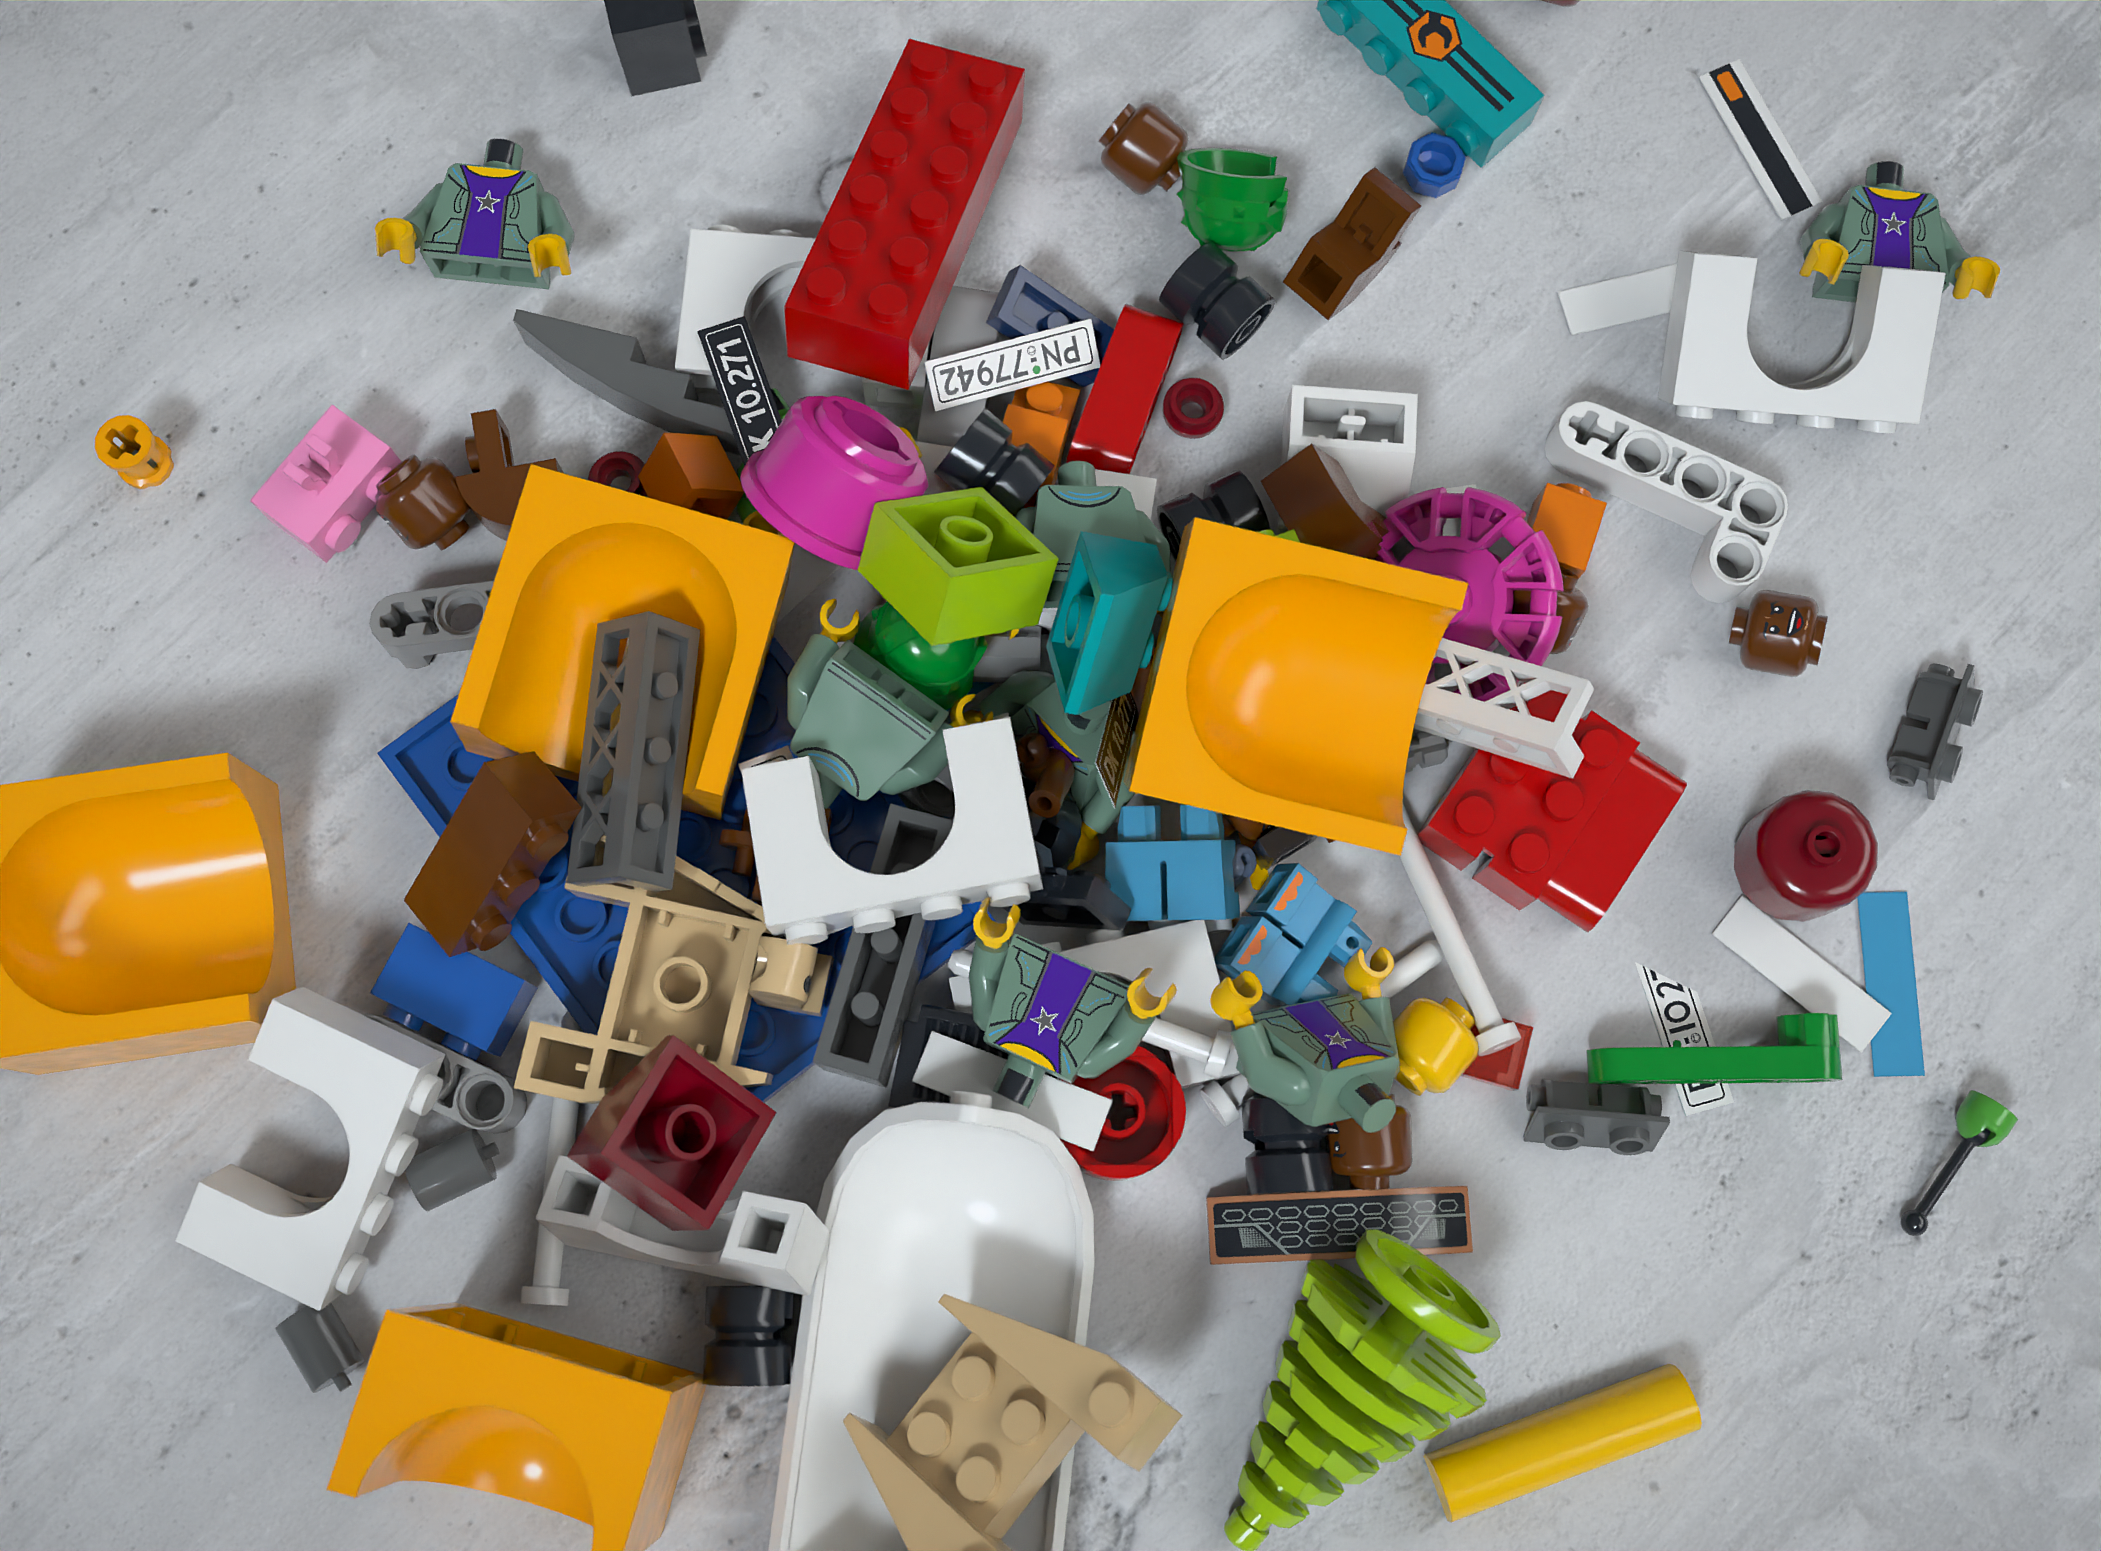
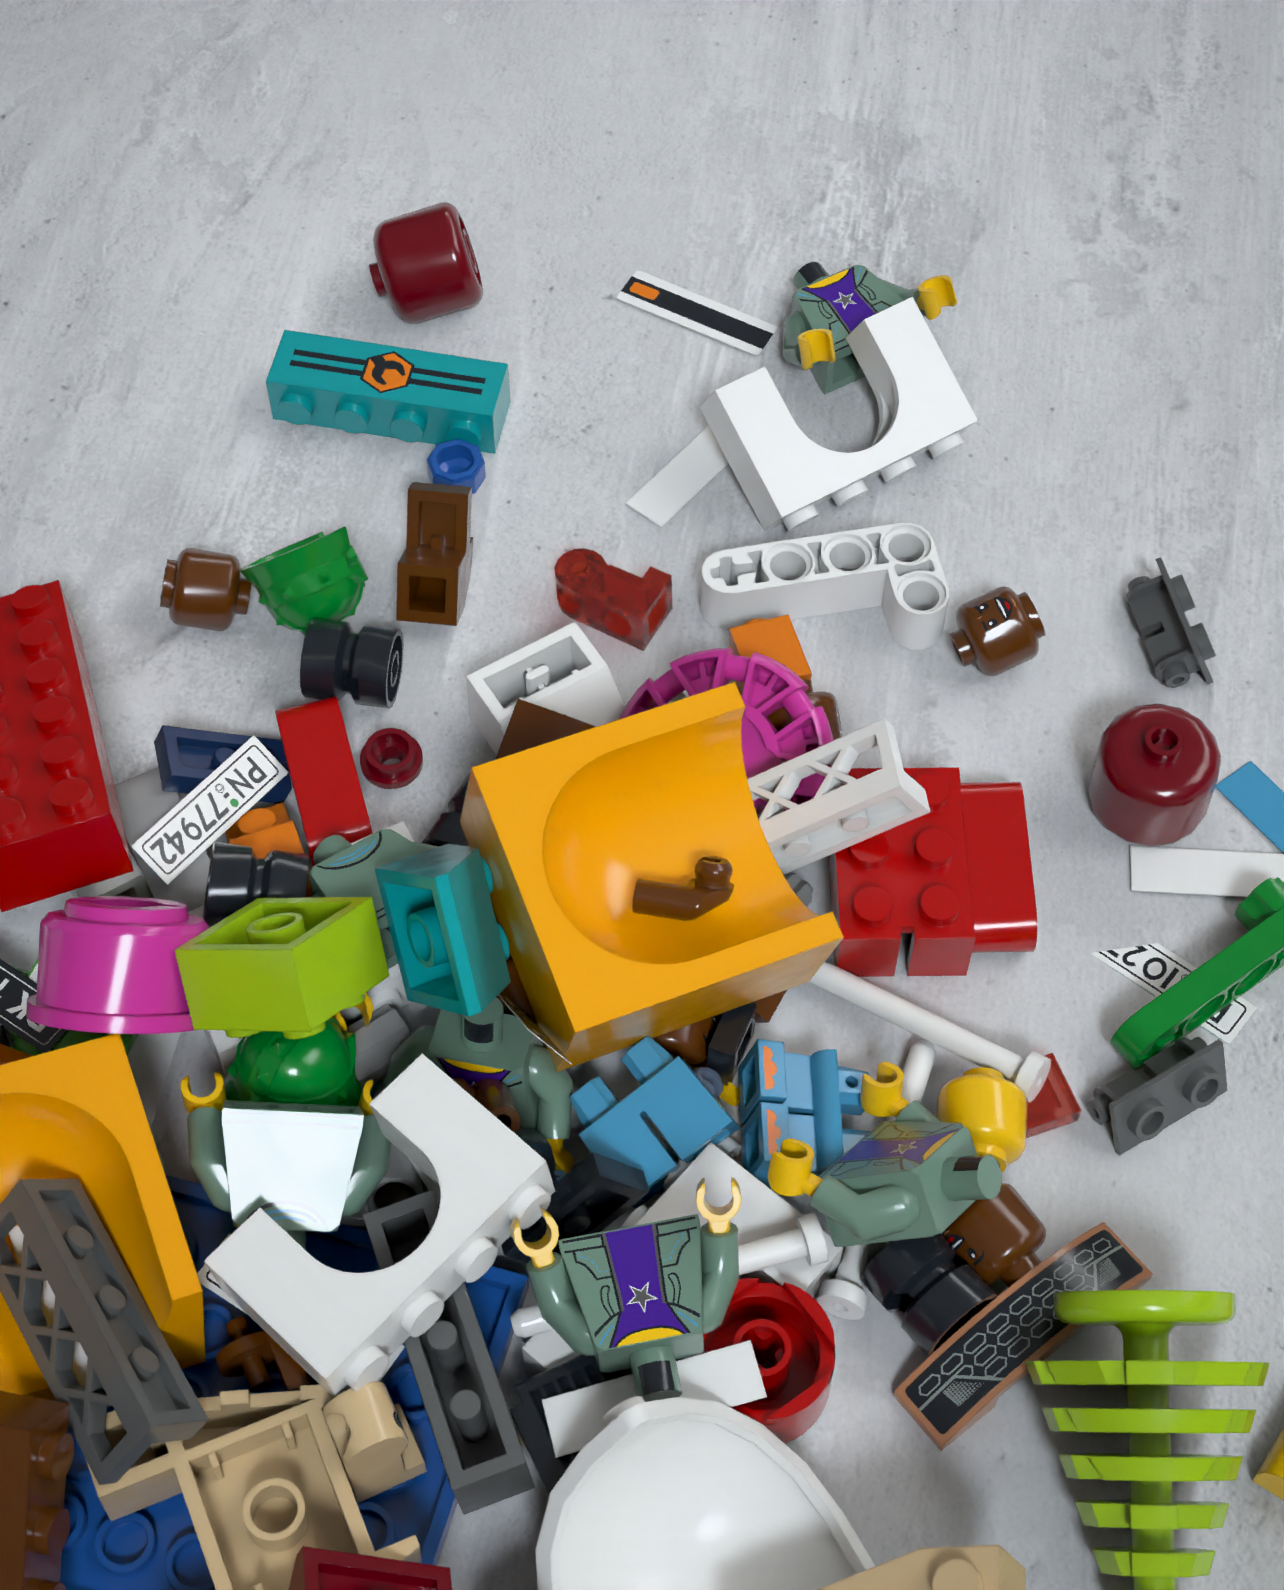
camera: 30 degrees left, 20 degrees down
(1313, 730) = (689, 900): none -> reddish brown arm
(1476, 381) = (612, 598): none -> clear red leg

